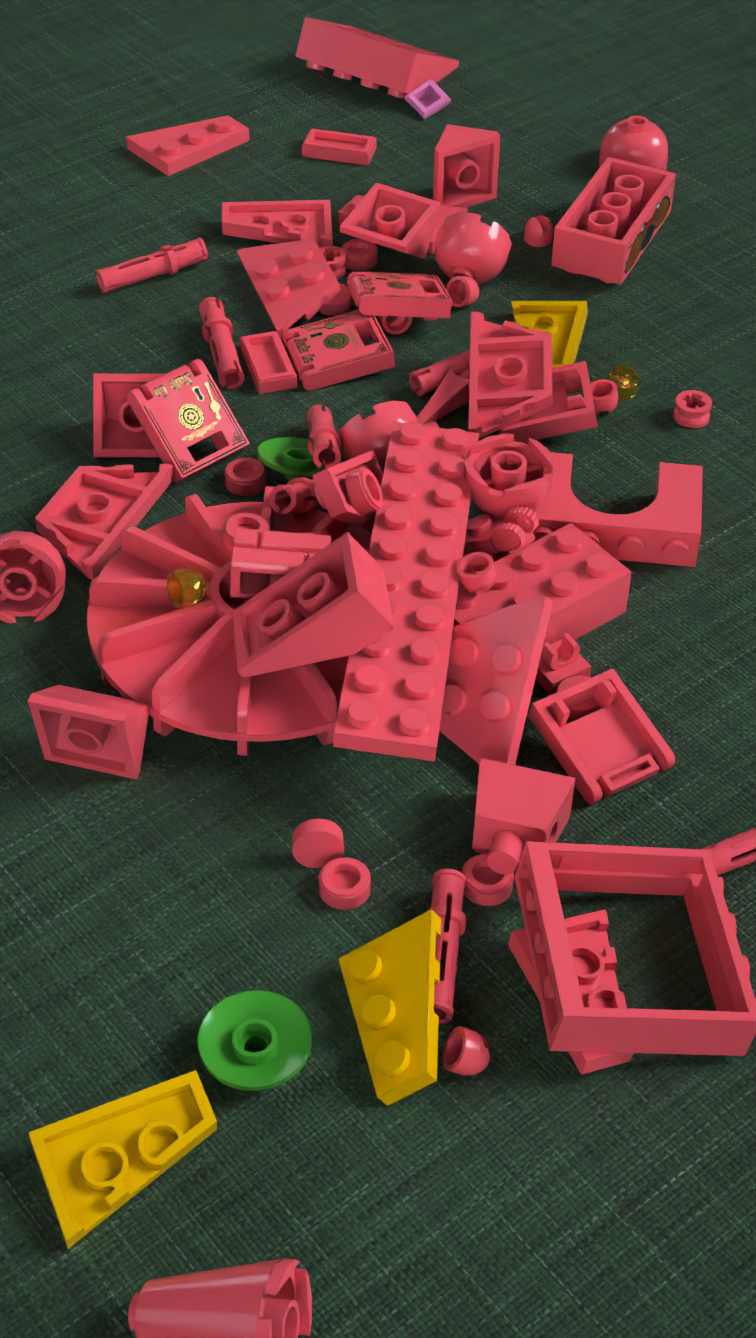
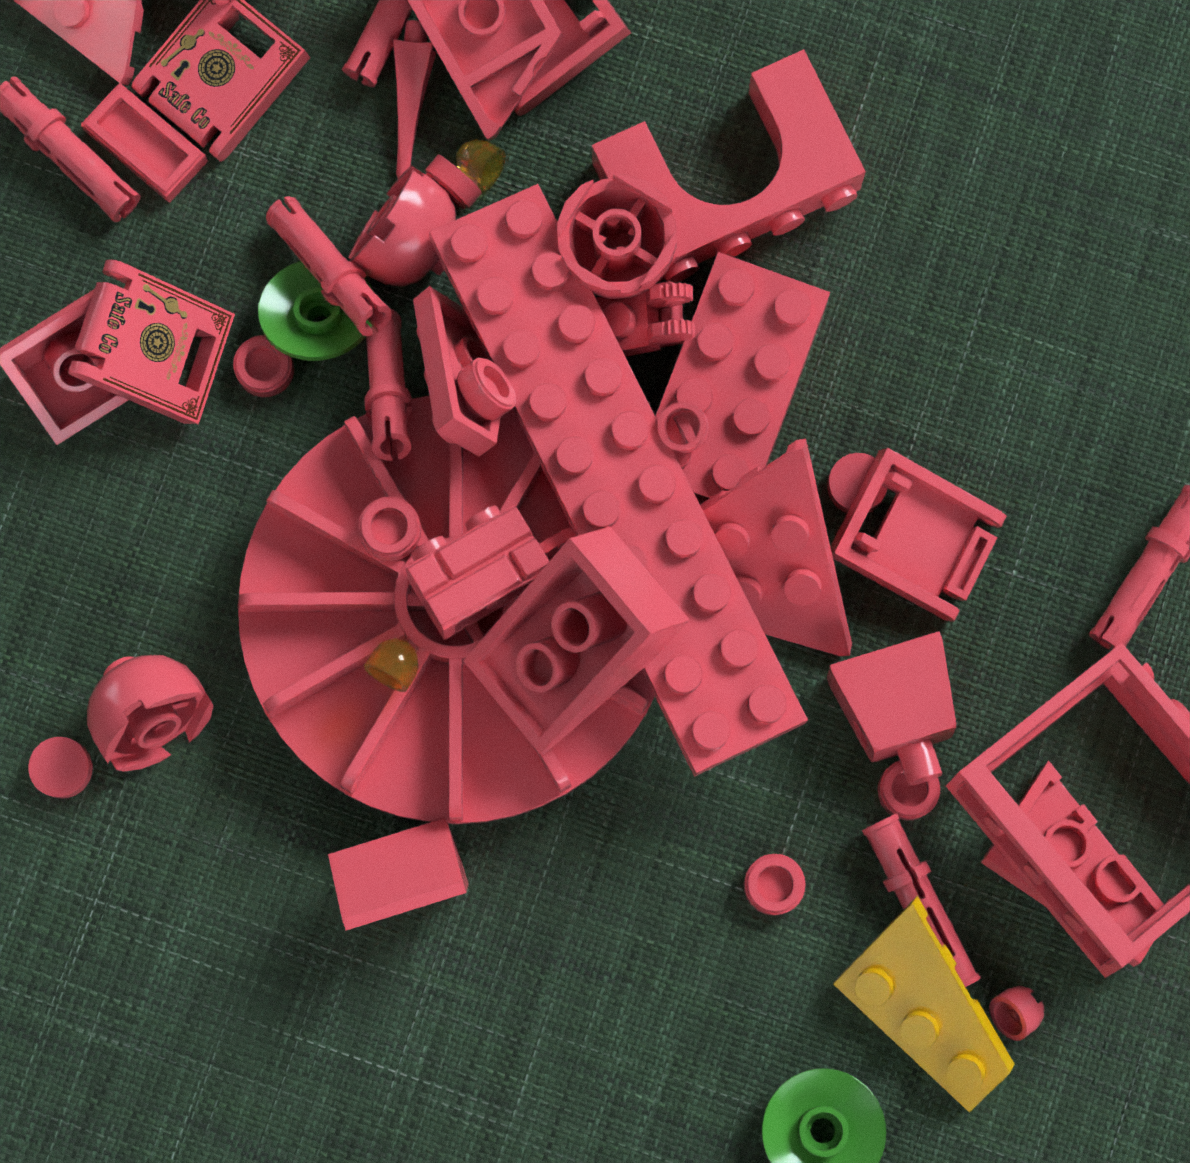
camera: 30 degrees left, 35 degrees up
(95, 508) = (143, 539): coral wing -> none
(317, 842) = (723, 862): coral tile -> none
(560, 662) = (822, 444): coral tile -> none

